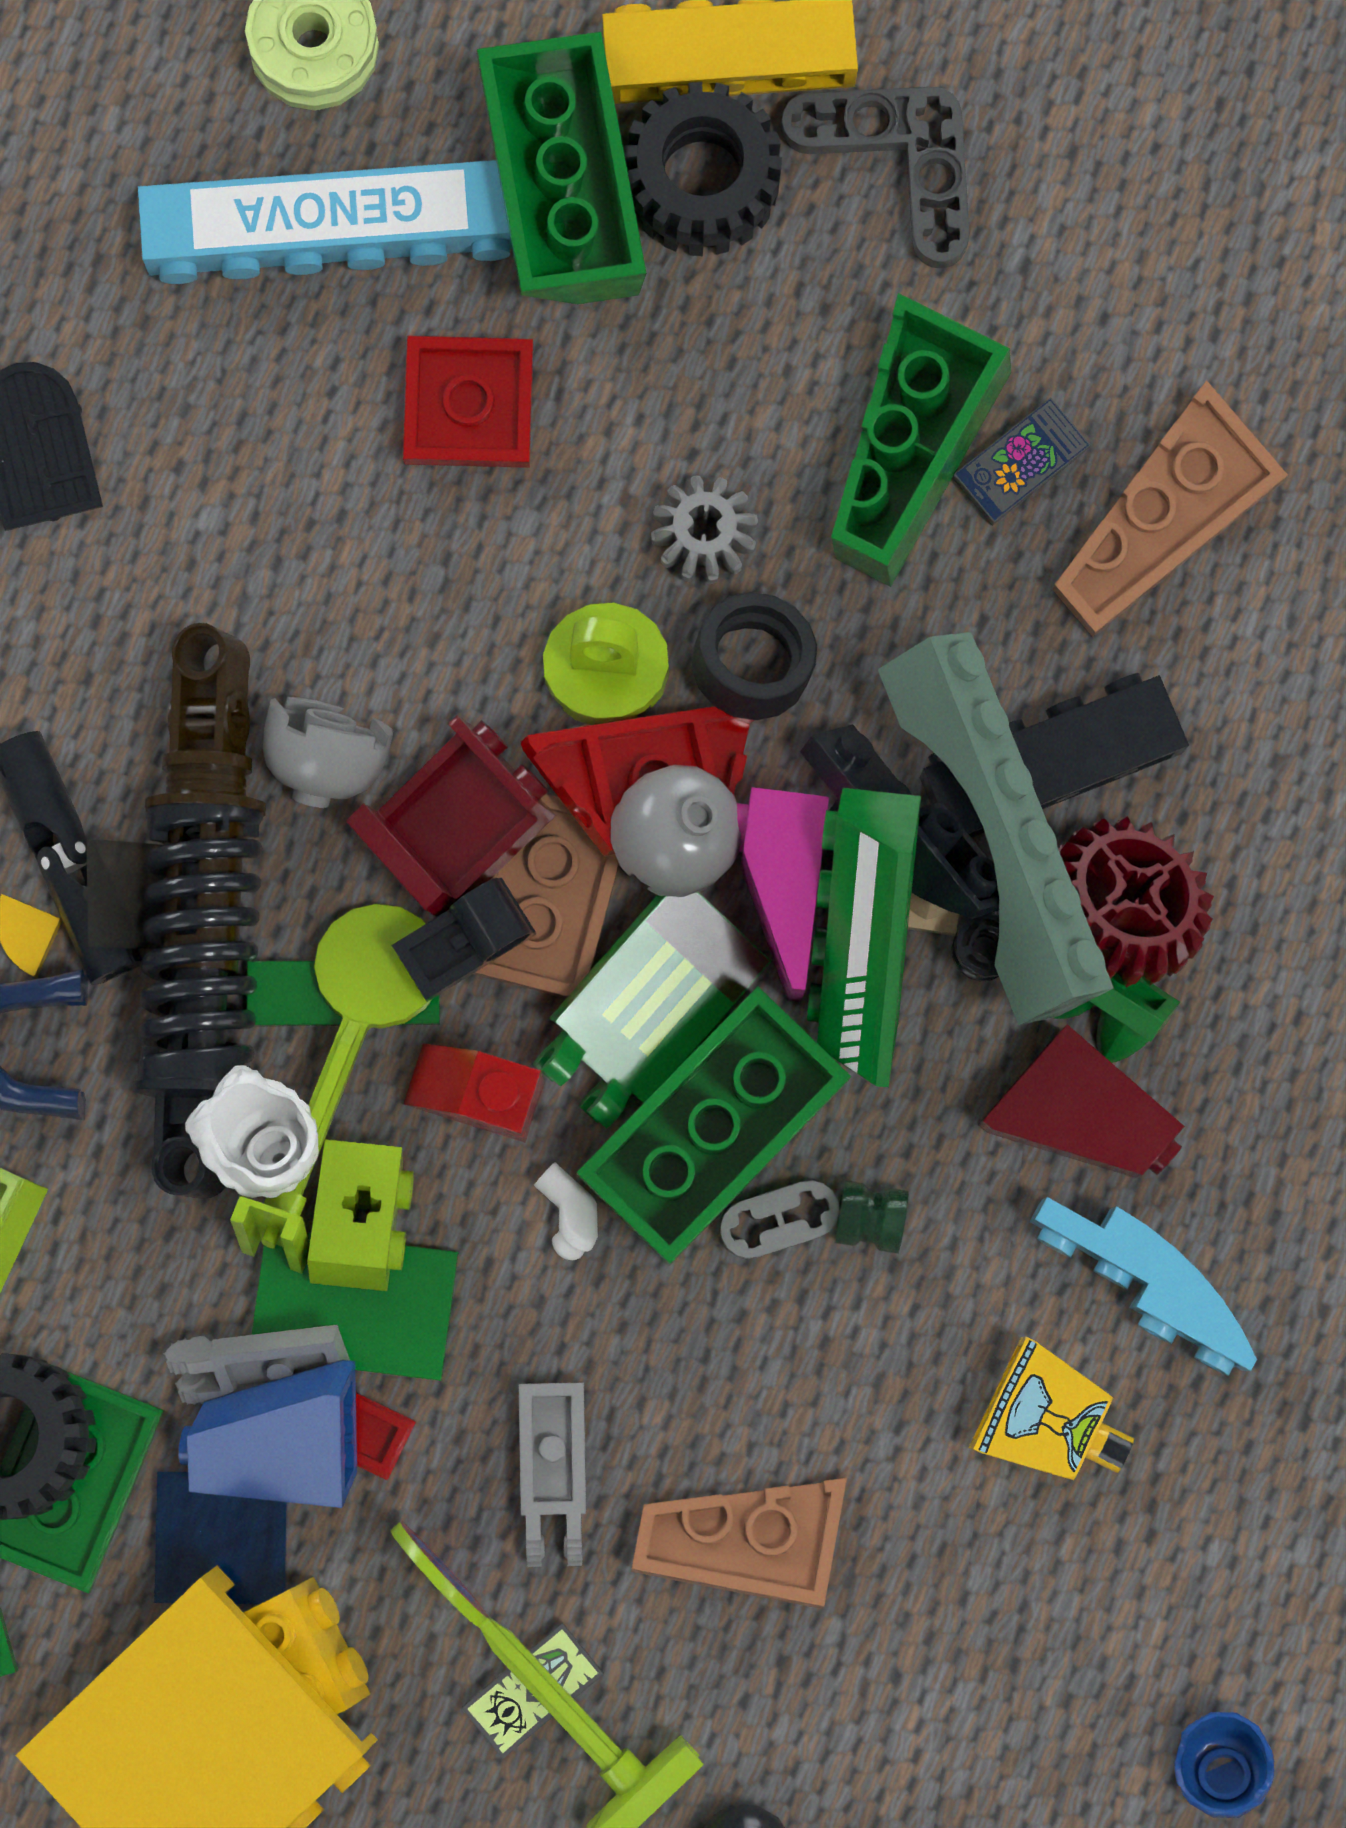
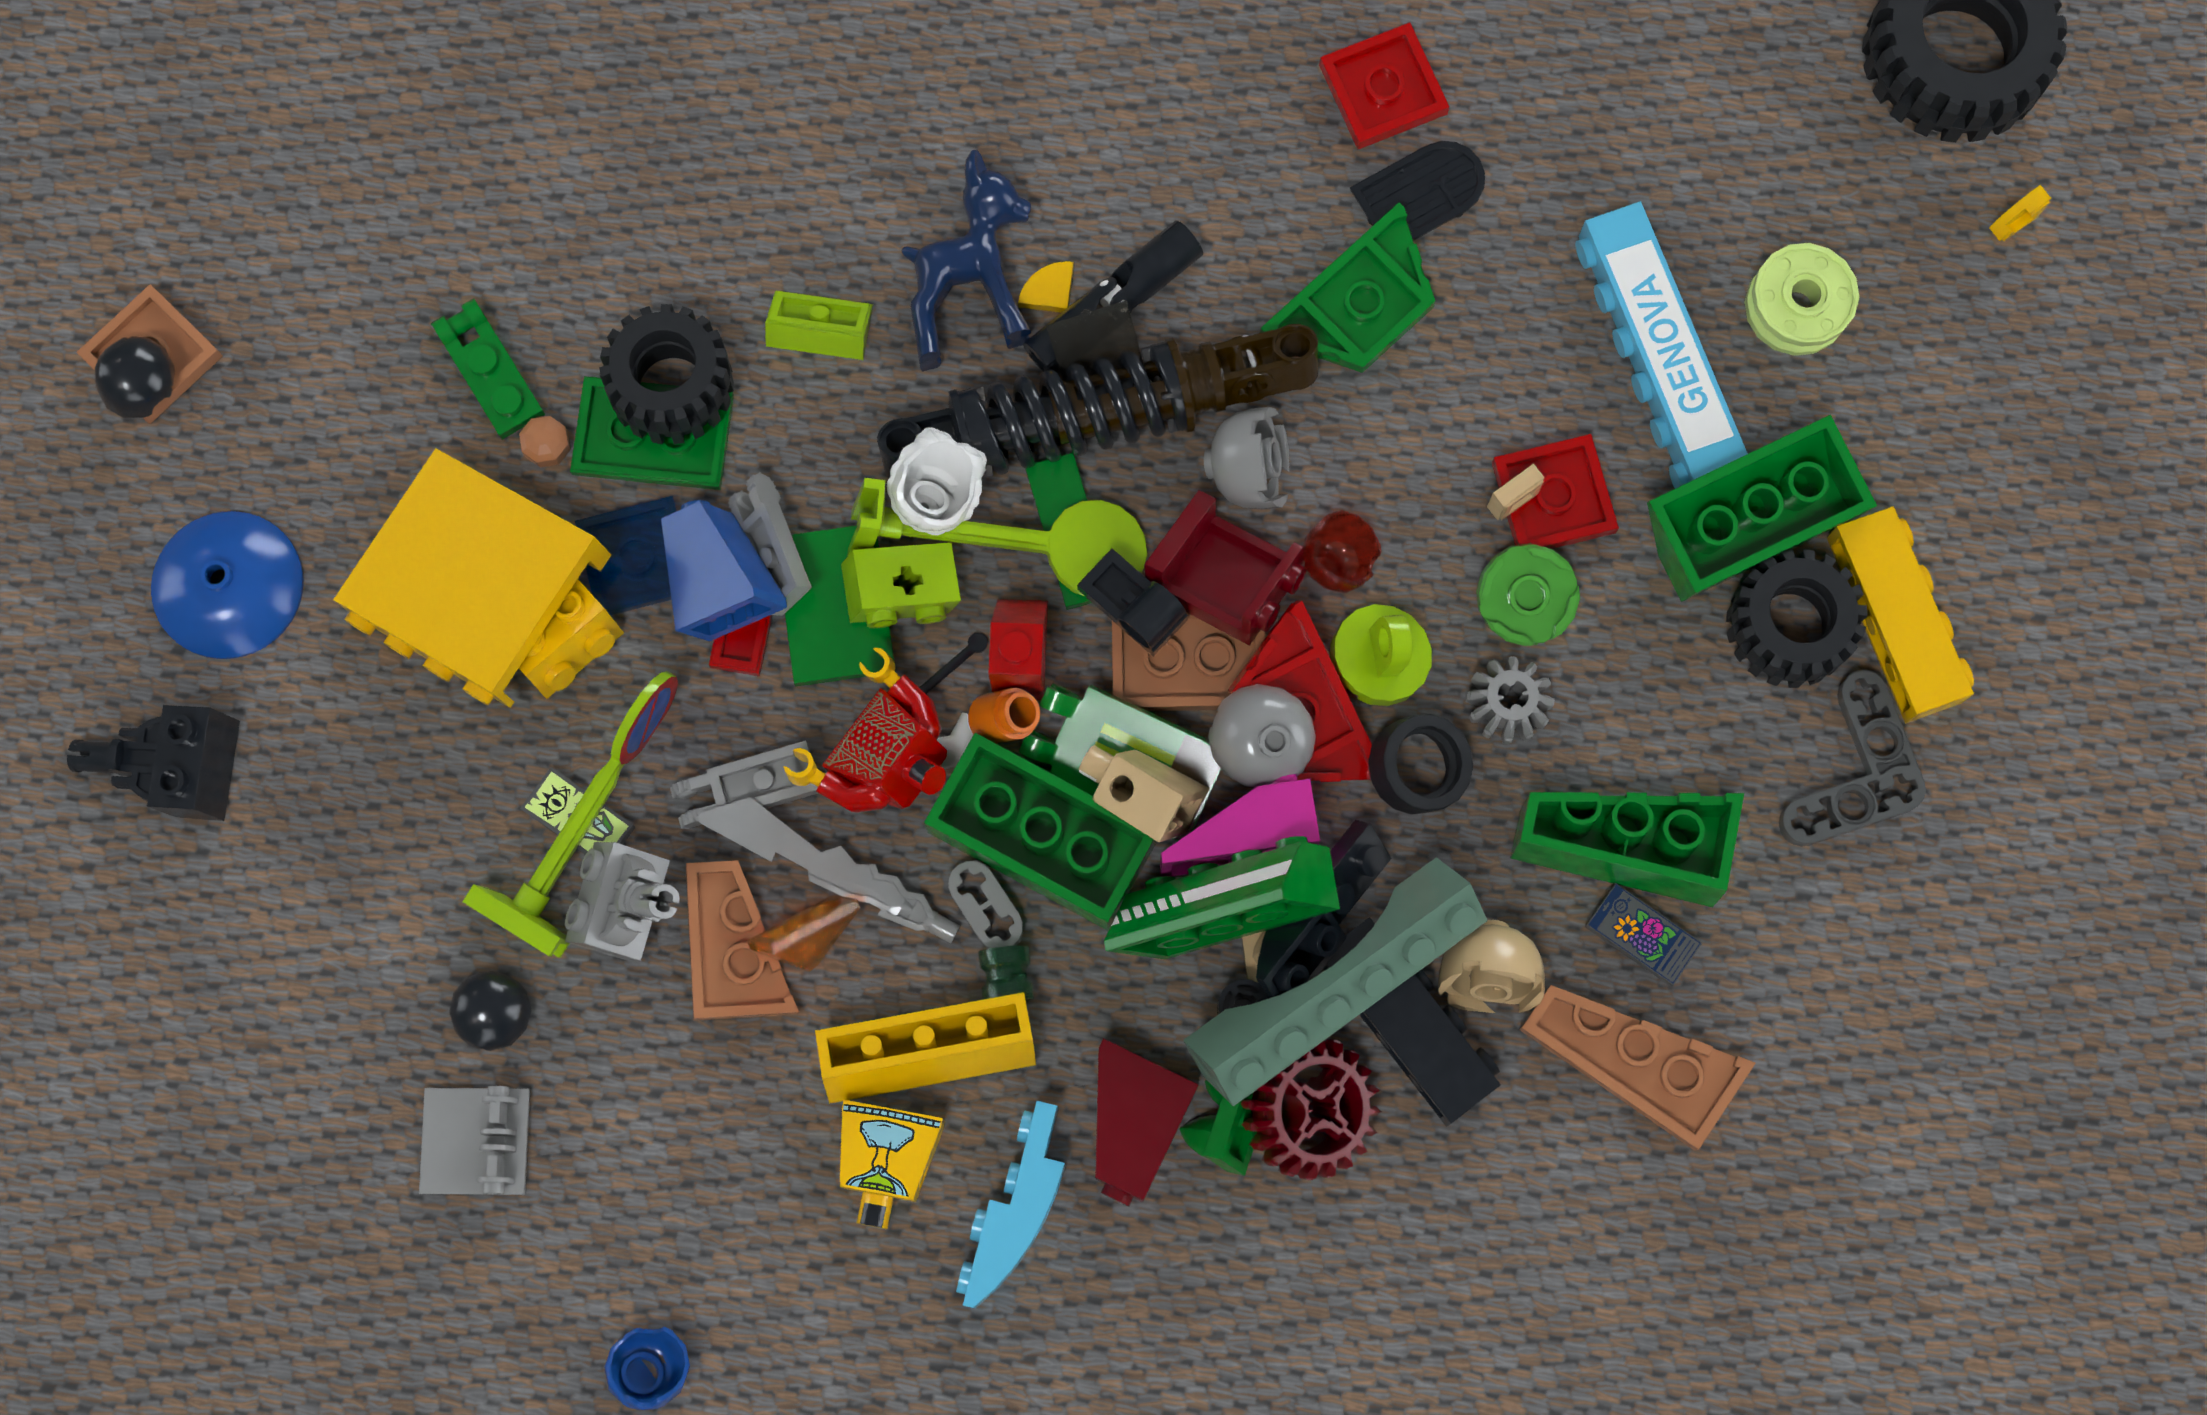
camera: 80 degrees right, 5 degrees down
(38, 1616) = (544, 441): none -> nougat tile
(153, 554) = (1364, 296): none -> green wing
(451, 1144) = (976, 644): none -> black hinge
(454, 689) = (1333, 539): none -> clear red hair
(461, 444) = (1516, 492): none -> tan tile
(561, 1133) = (1004, 715): none -> orange brick
(564, 1288) = (885, 753): none -> red torso
(582, 470) = (1528, 594): none -> bright green tile
(660, 1658) = (619, 900): none -> light grey brick
(685, 1391) = (832, 869): none -> light grey sword
(705, 990) = (1161, 799): none -> tan torso
(755, 1441) = (807, 935): none -> clear orange slope
(935, 1334) = (925, 1047): none -> yellow brick
(1022, 634) = (1502, 970): none -> tan cylinder

